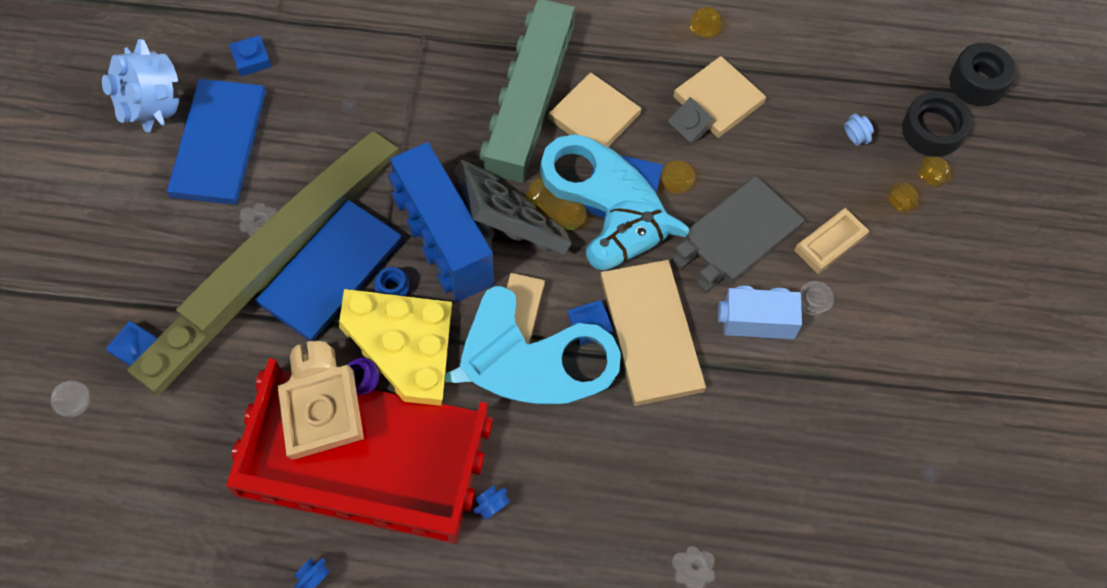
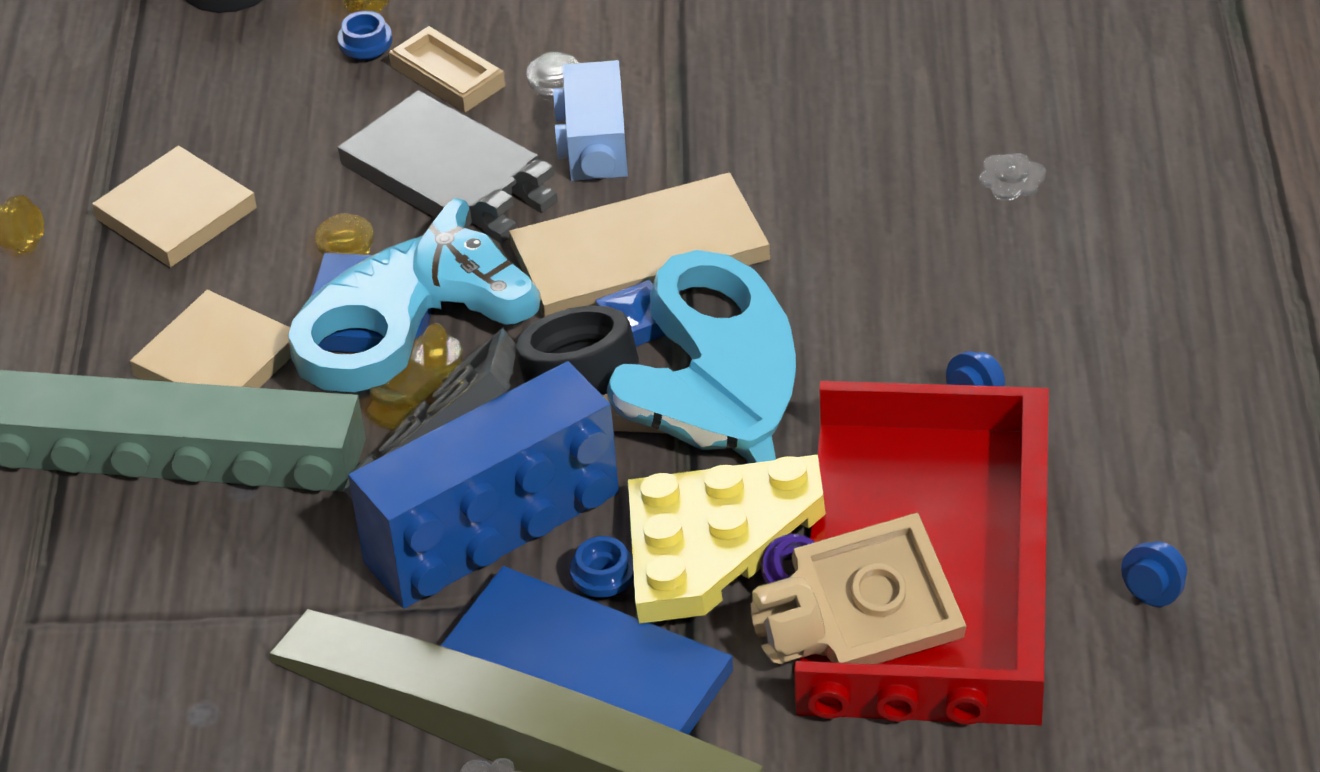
camera: 90 degrees left, 20 degrees down
(558, 263) = (586, 336): none -> black tyre
(691, 120) = (232, 226): dark grey plate -> none
(859, 129) = (242, 41): light blue plate -> none
(866, 189) = (364, 35): none -> blue plate

